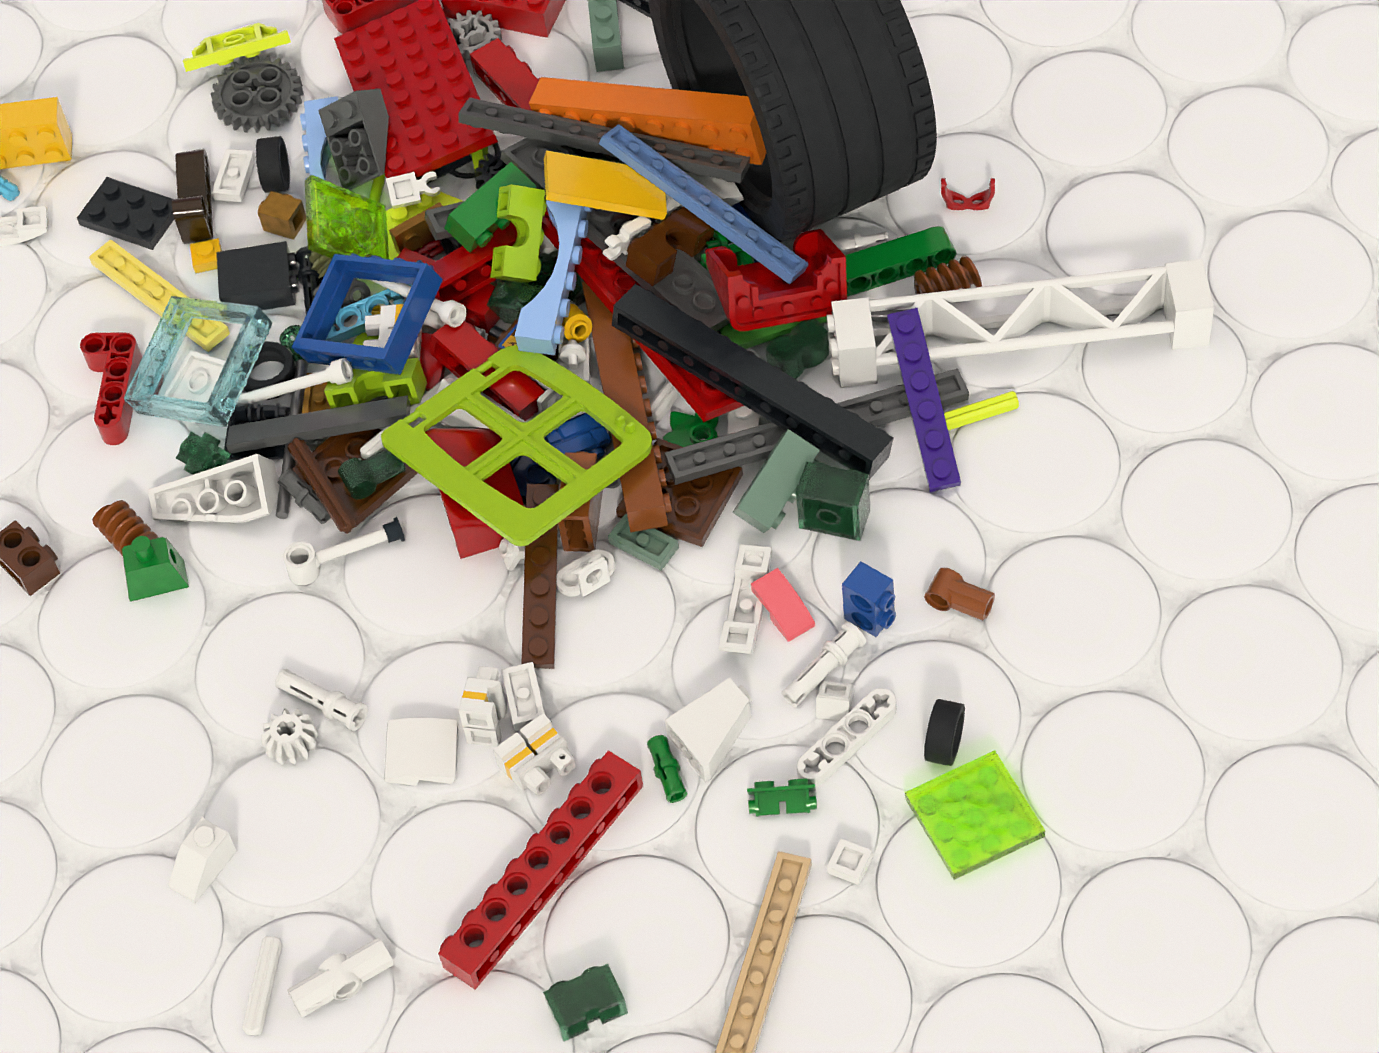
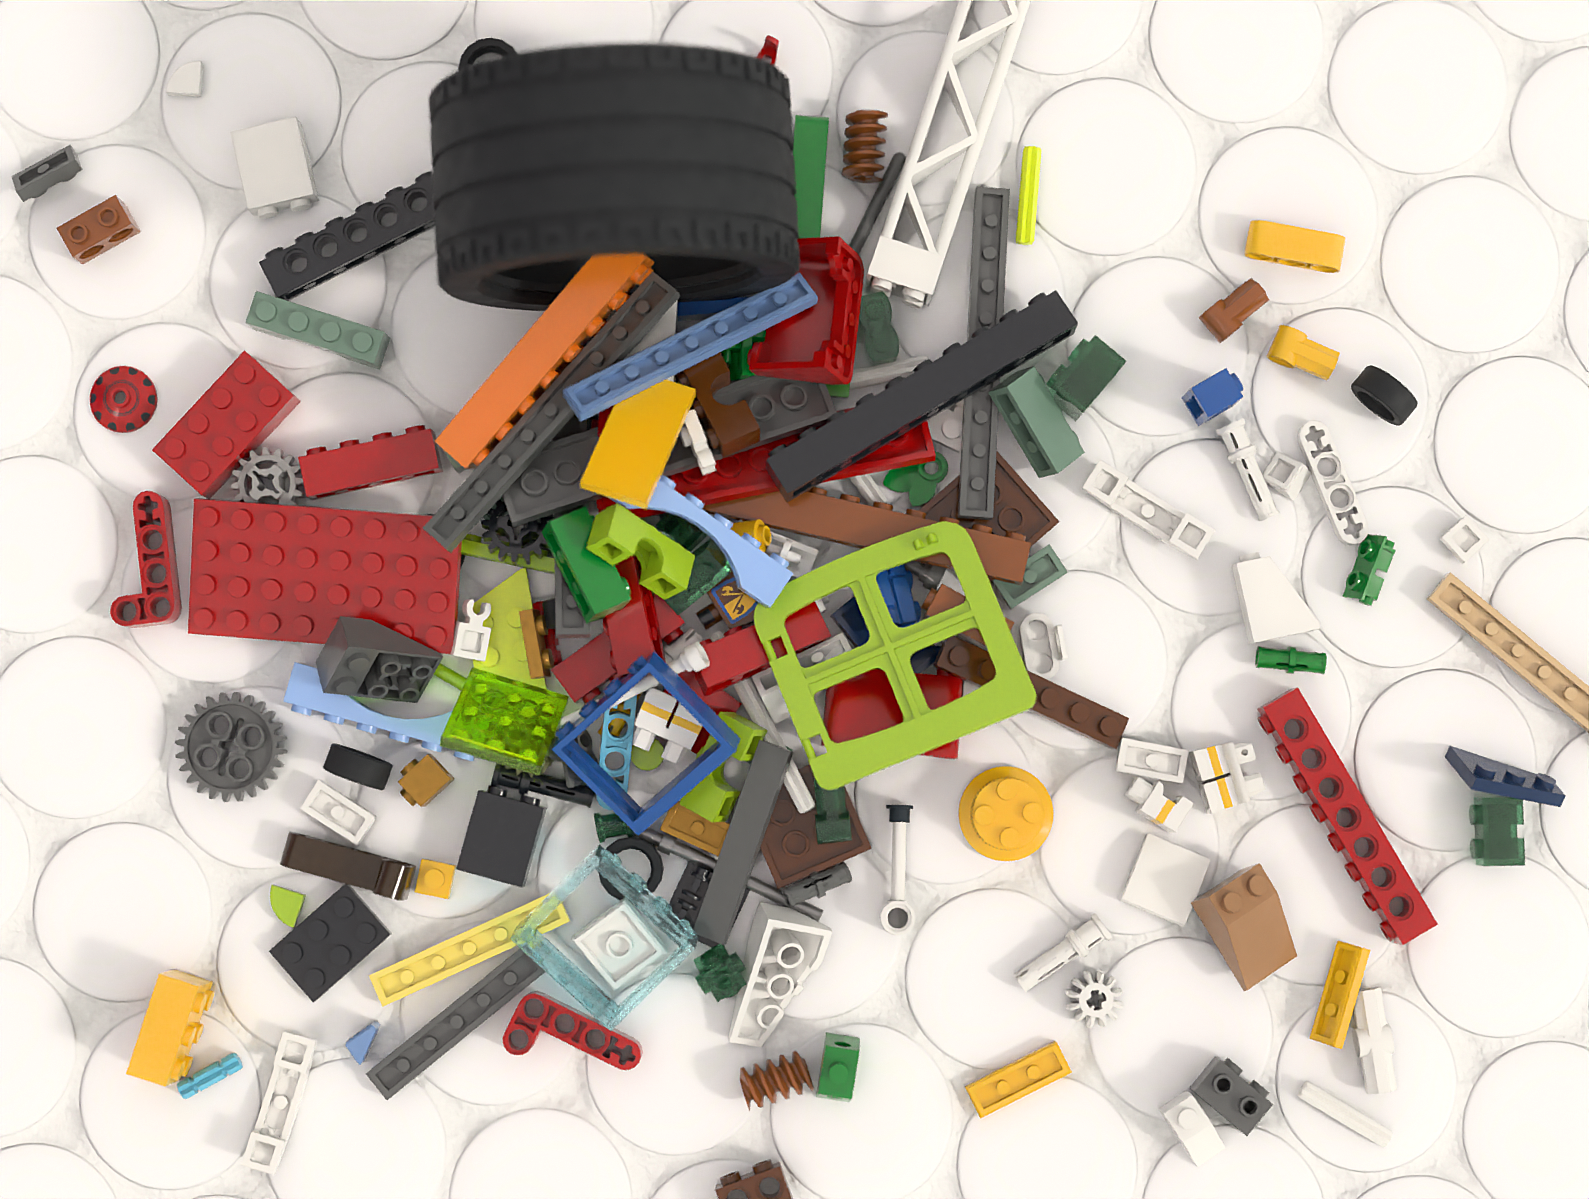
camera: 75 degrees left, 30 degrees up
(56, 258) = (360, 1044): none -> medium blue slope
(86, 306) = (454, 1023): none -> dark grey plate
(148, 175) = (286, 904): none -> lime tile
(196, 713) = (1018, 1079): none -> yellow tile
(240, 42) = (149, 746): neon yellow wing -> none
(242, 879) = (1231, 1095): none -> dark grey brick
(321, 485) = (820, 865): reddish brown axle -> none
(337, 372) = (701, 800): white piece -> none
(372, 929) = (1339, 994): none -> yellow tile
(403, 824) = (1247, 925): none -> medium nougat slope
(427, 608) = (1005, 813): none -> yellow piece
(636, 981) = (1503, 779): none -> dark blue wing
(783, 604) = (1164, 476): coral slope -> none
(923, 400) = (1008, 237): dark purple plate -> none
(950, 657) = (1294, 350): none -> yellow piece
(974, 814) = (1468, 407): clear neon green plate -> none
(1043, 618) = (1294, 246): none -> yellow beam

